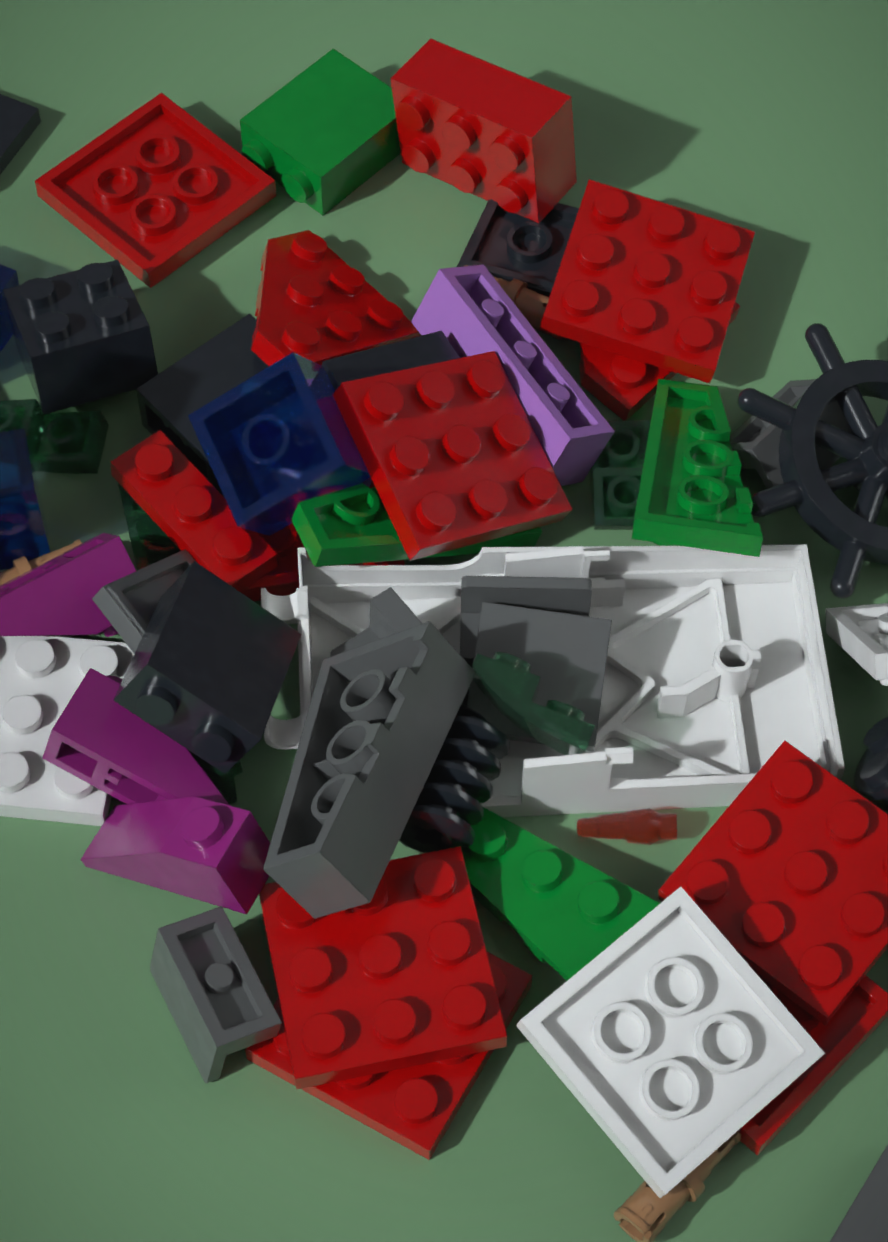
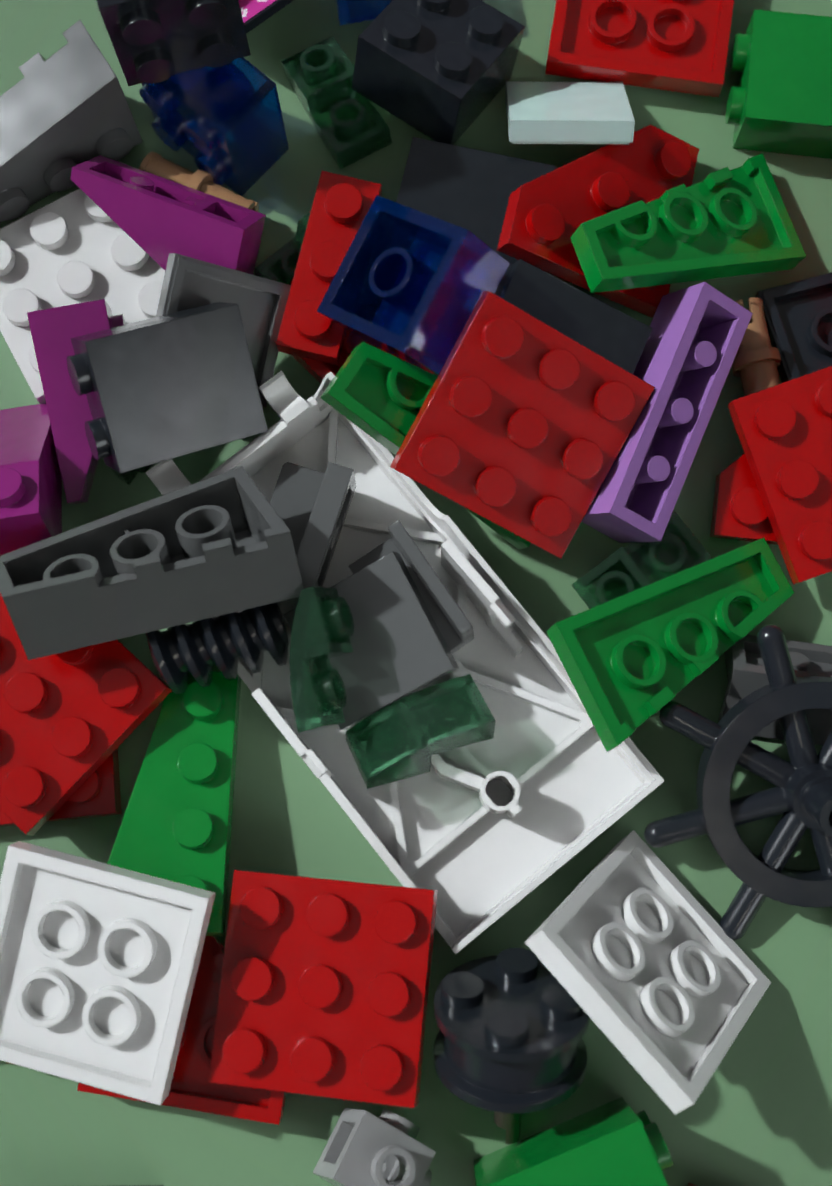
camera: 60 degrees right, 20 degrees up
(210, 282) = (568, 113): none -> light aqua tile
(384, 264) = (692, 233): none -> green wing
(634, 826) = (308, 805): clear red piece -> none
(638, 687) = (406, 733): none -> clear green slope

